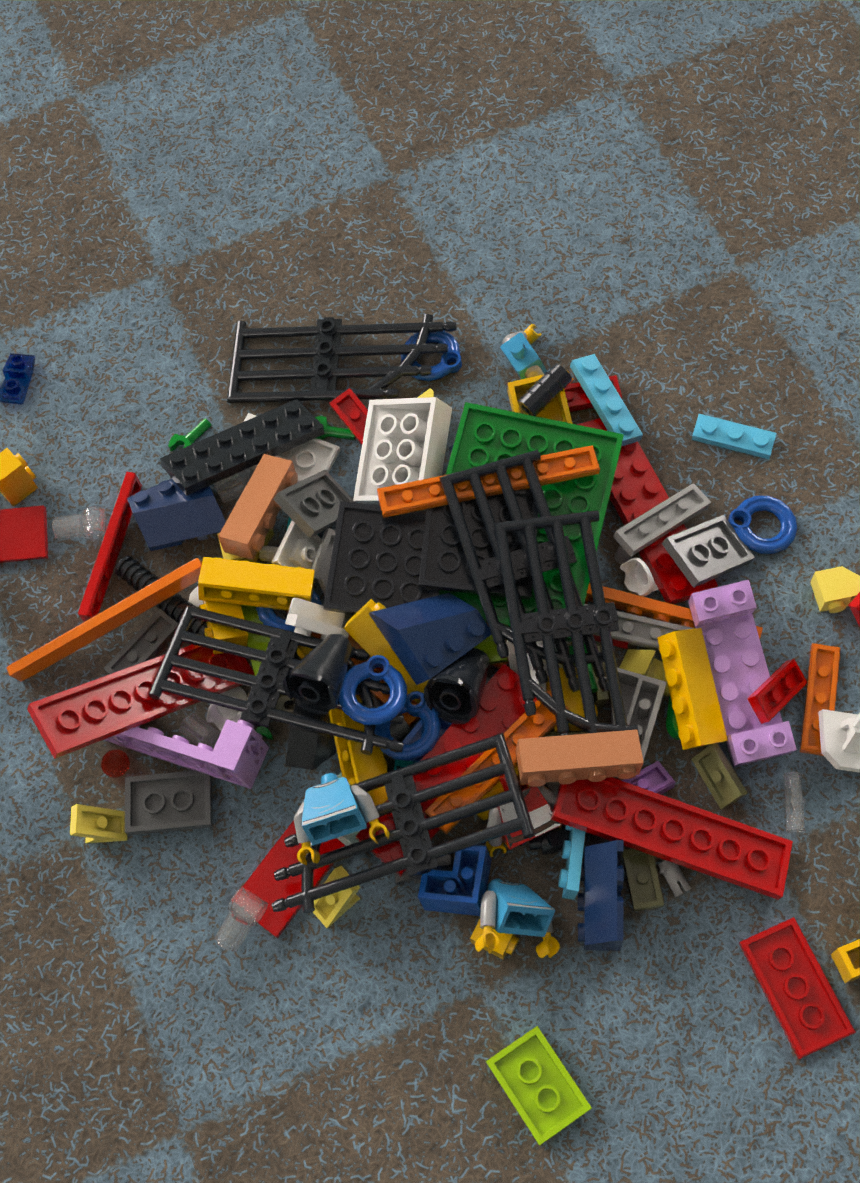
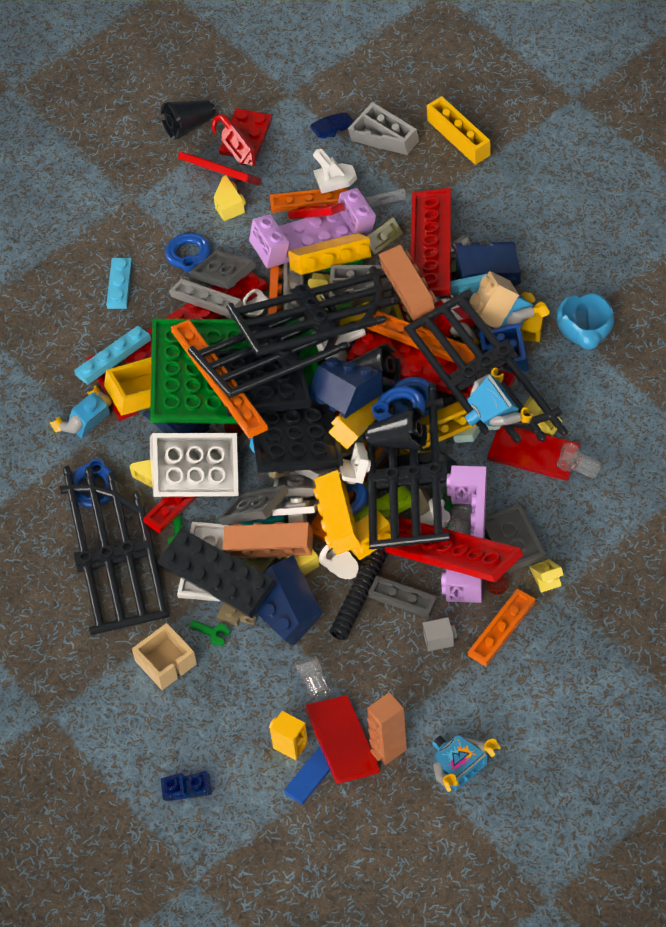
camera: 110 degrees left, 10 degrees down
(65, 769) = (501, 627): none -> orange plate
(72, 670) = (439, 634): none -> light grey brick
(106, 621) = (392, 615): orange tile -> none
(109, 549) = (326, 647): red tile -> none
(165, 379) = (164, 656): none -> tan piece
(450, 996) = (584, 313): none -> dark azure piece
(528, 880) = (494, 299): none -> tan piece
(538, 1085) = (614, 279): lime plate -> none
(545, 390) = (128, 370): black axle -> none
(796, 988) = (501, 177): red tile -> none

